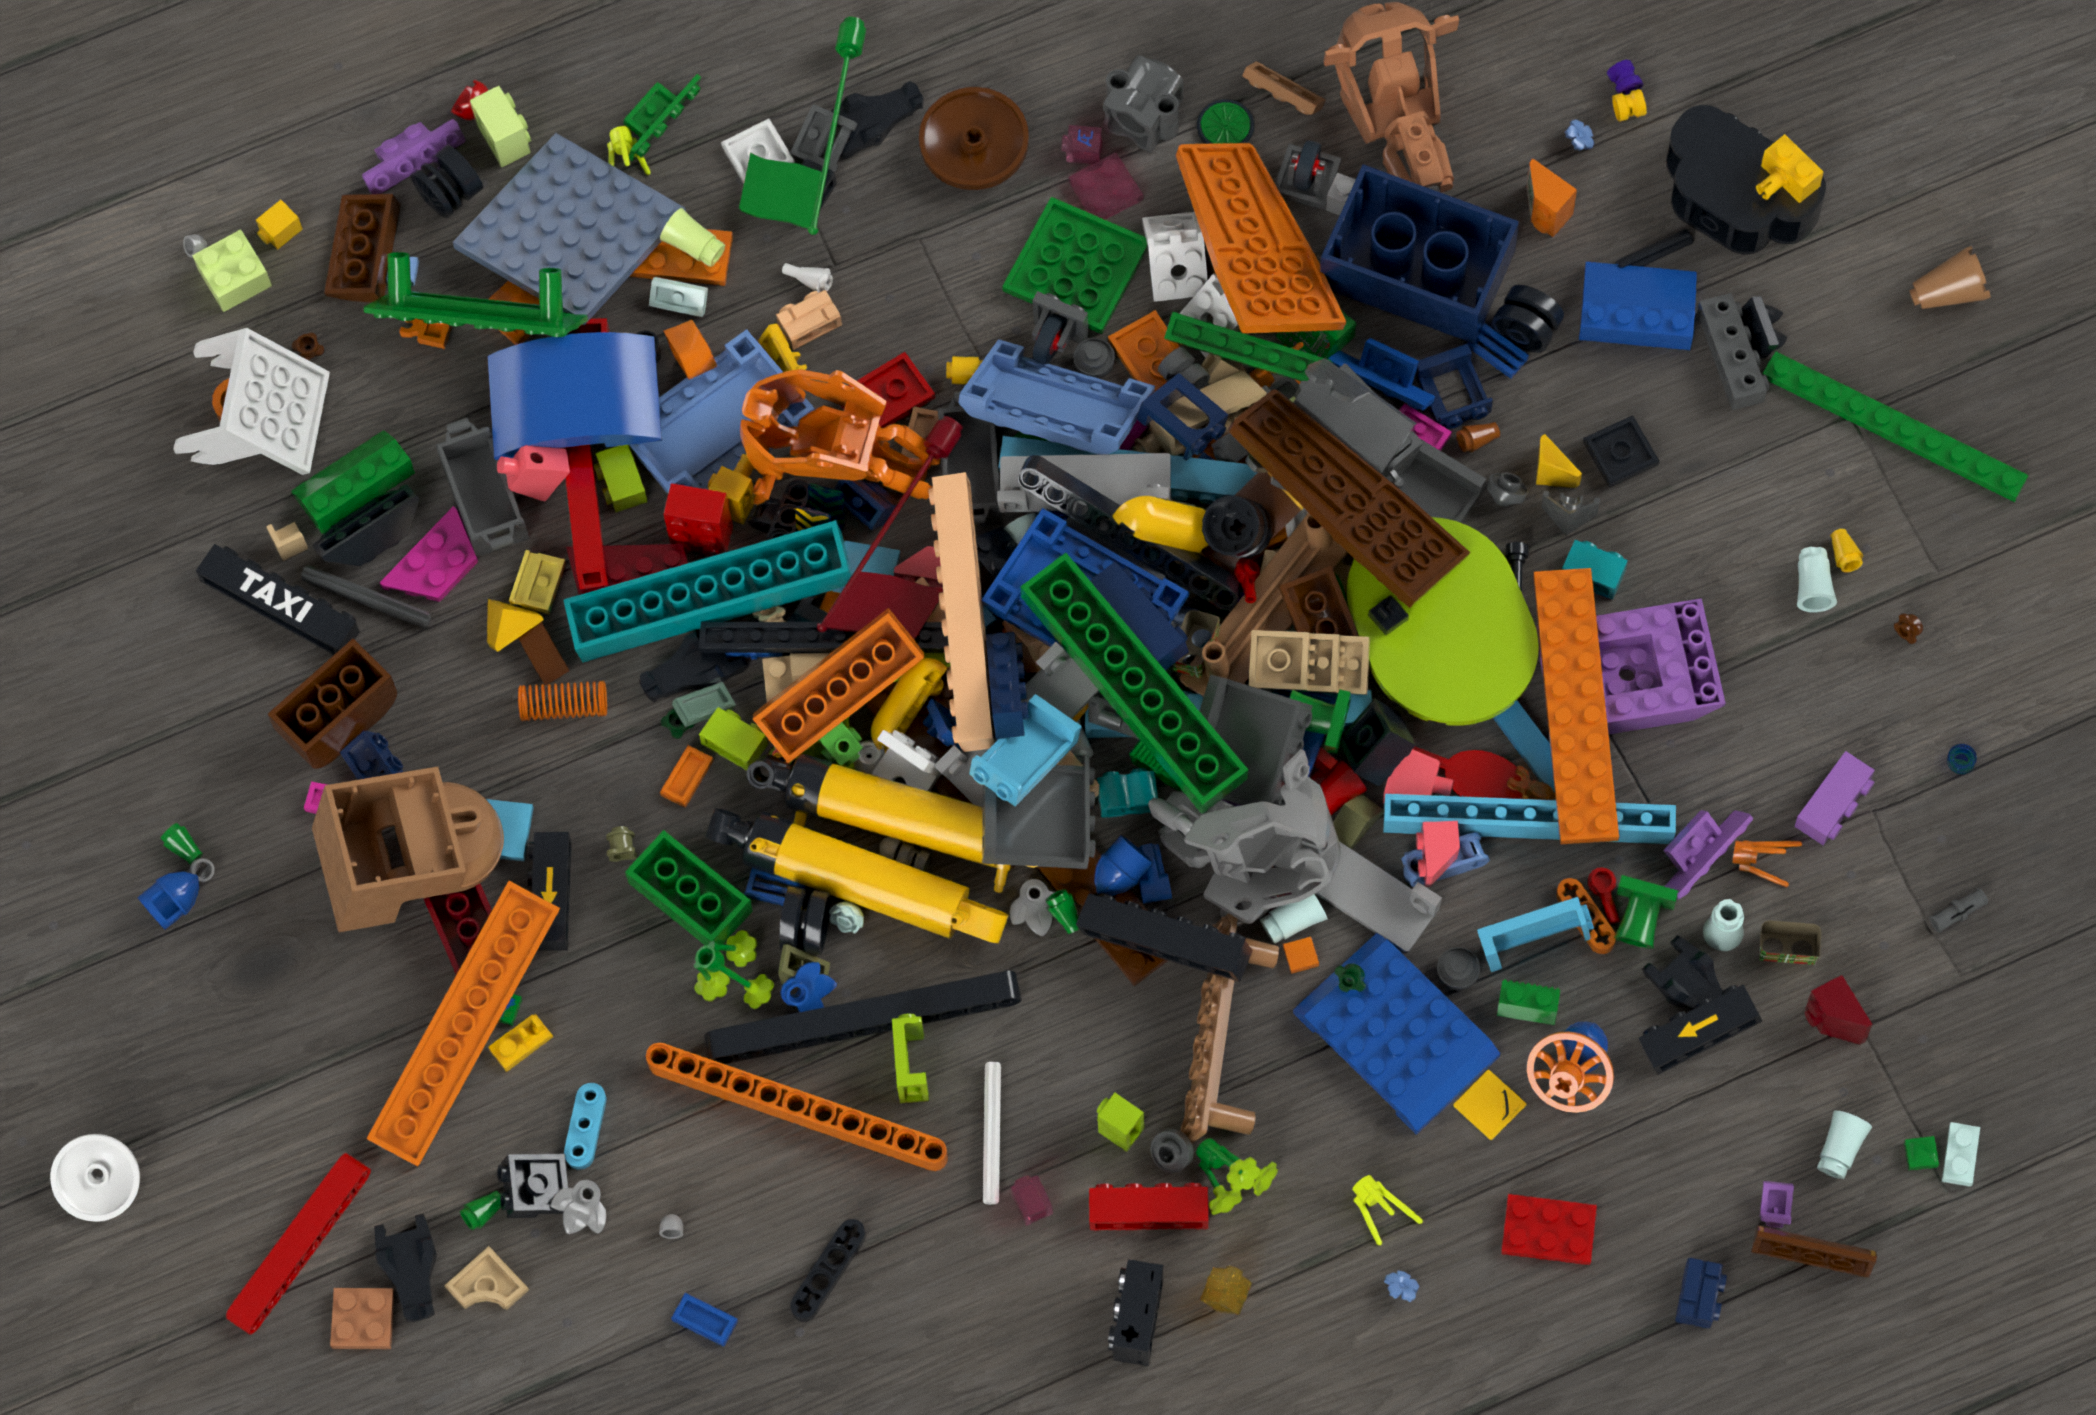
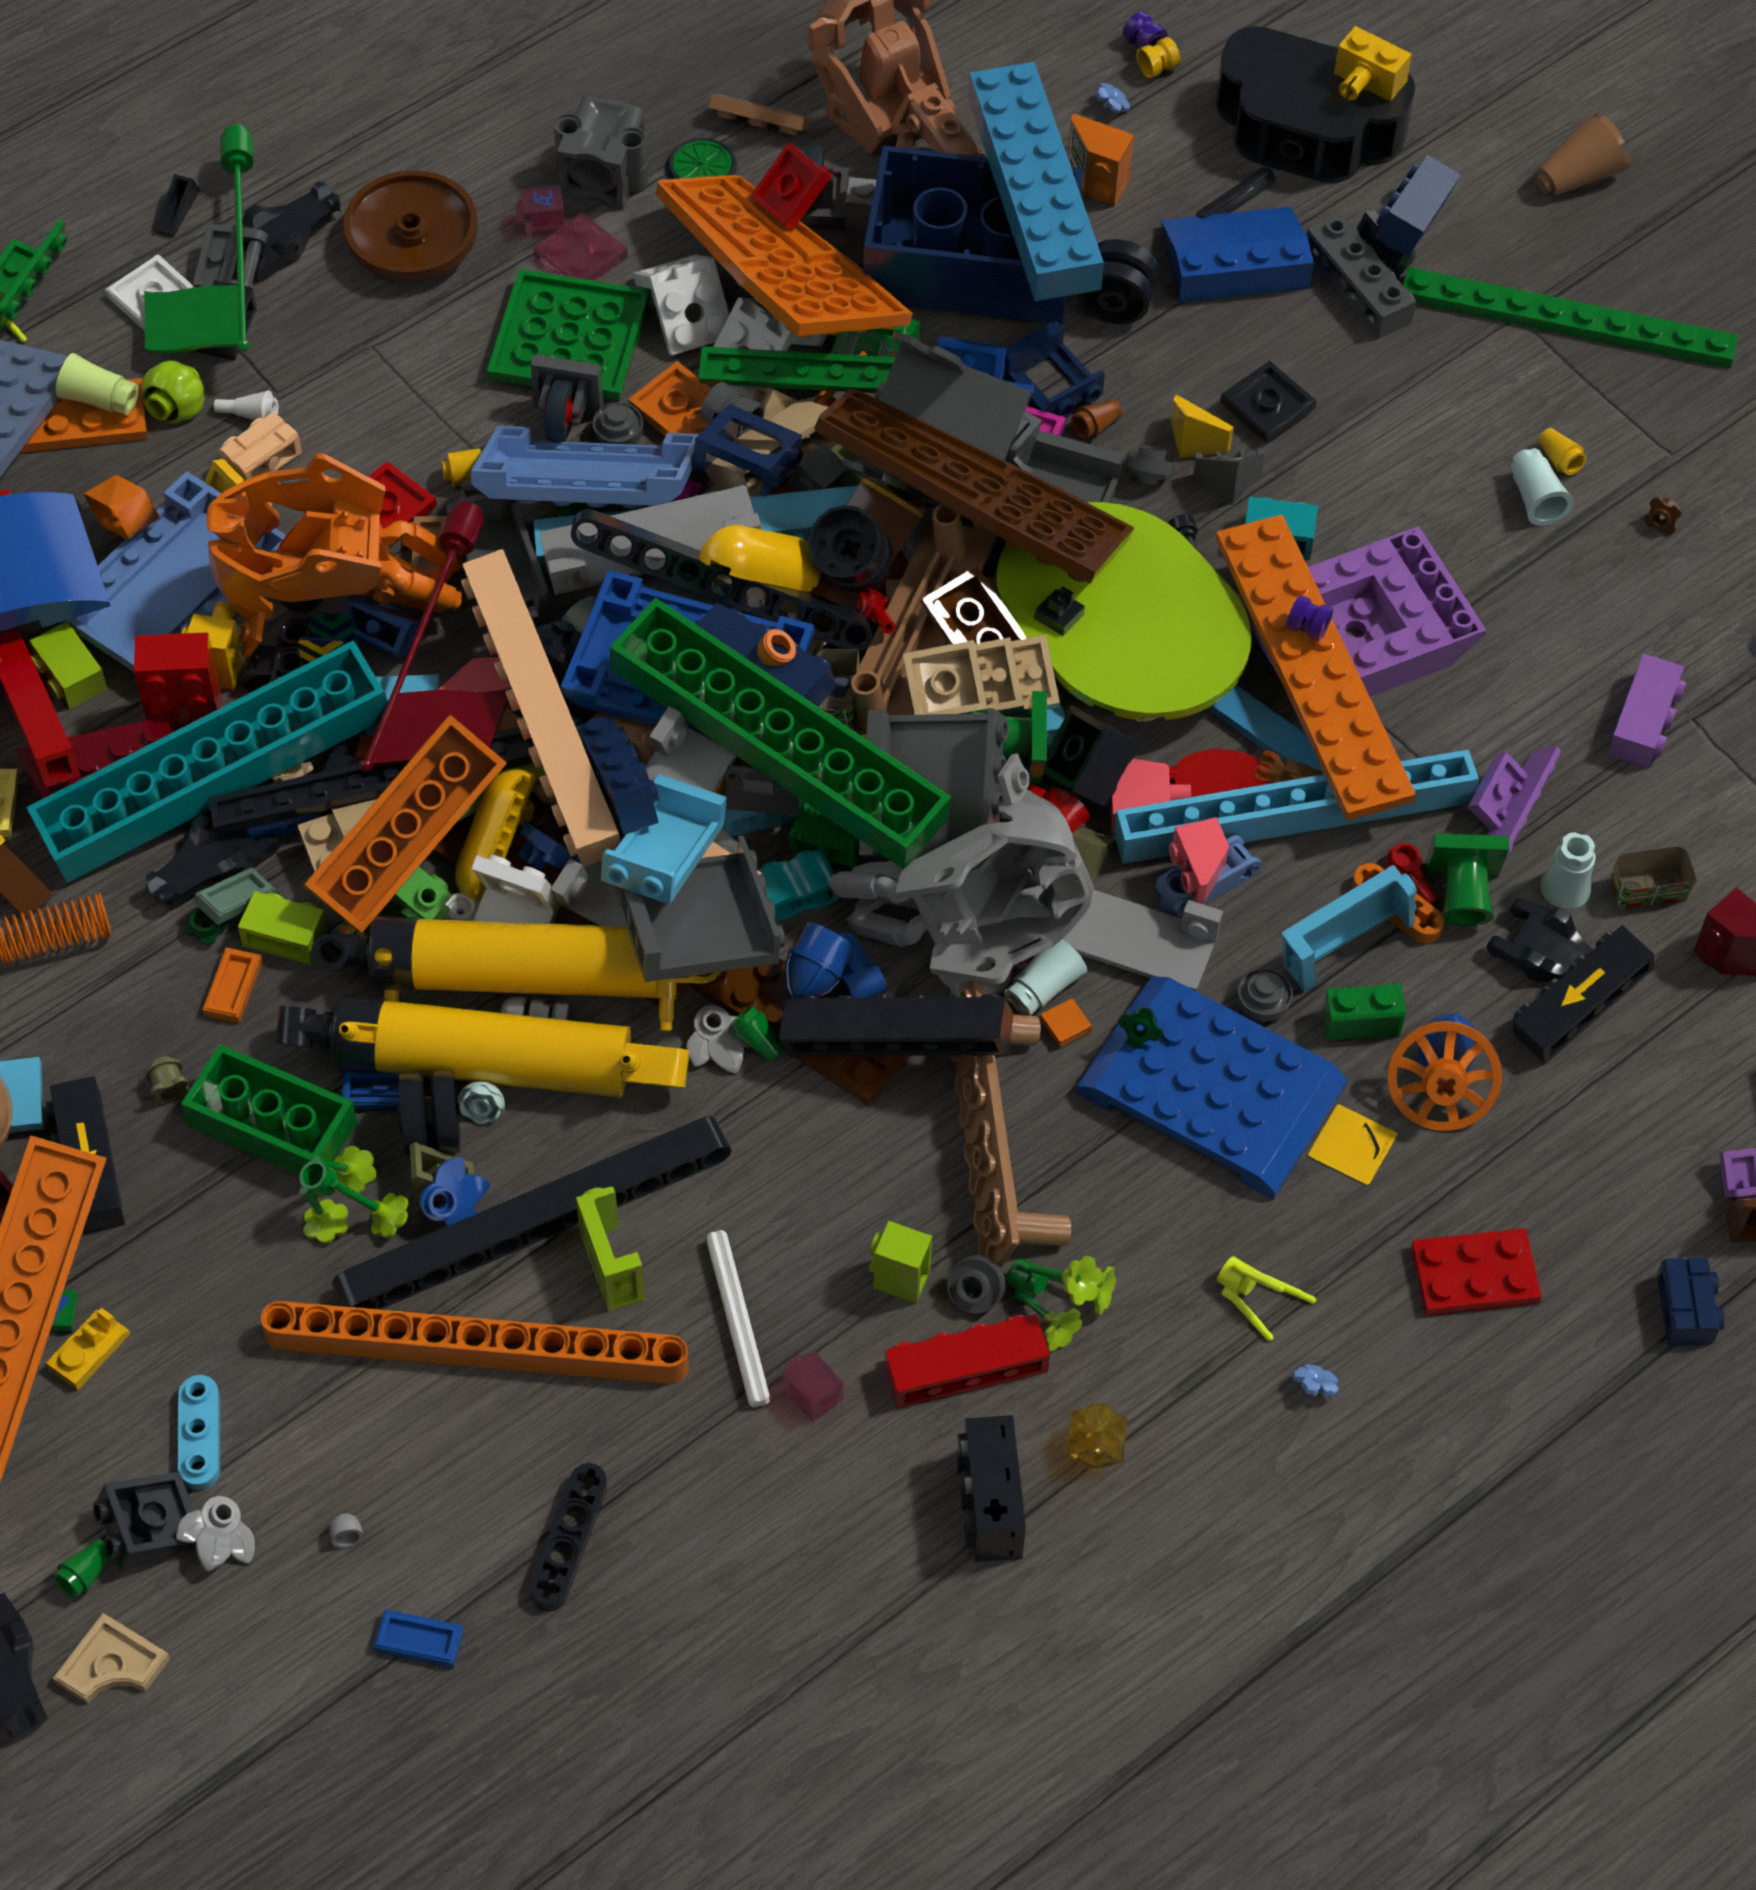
camera: 20 degrees left, 10 degrees down
(678, 296) = (92, 457): light aqua plate -> none
(752, 251) = (172, 387): none -> lime plant
(793, 74) = (176, 205): none -> black piece
(1138, 615) = (767, 653): none -> orange piece
(1282, 177) = (790, 186): none -> red tile
(1473, 229) = (1035, 181): none -> dark azure brick
(1505, 344) = (1093, 325): blue tile -> none
(1579, 670) = (1309, 618): none -> dark purple wheel
(1747, 851) = (1566, 791): orange plant -> none
(1796, 301) = (1415, 205): none -> dark blue brick

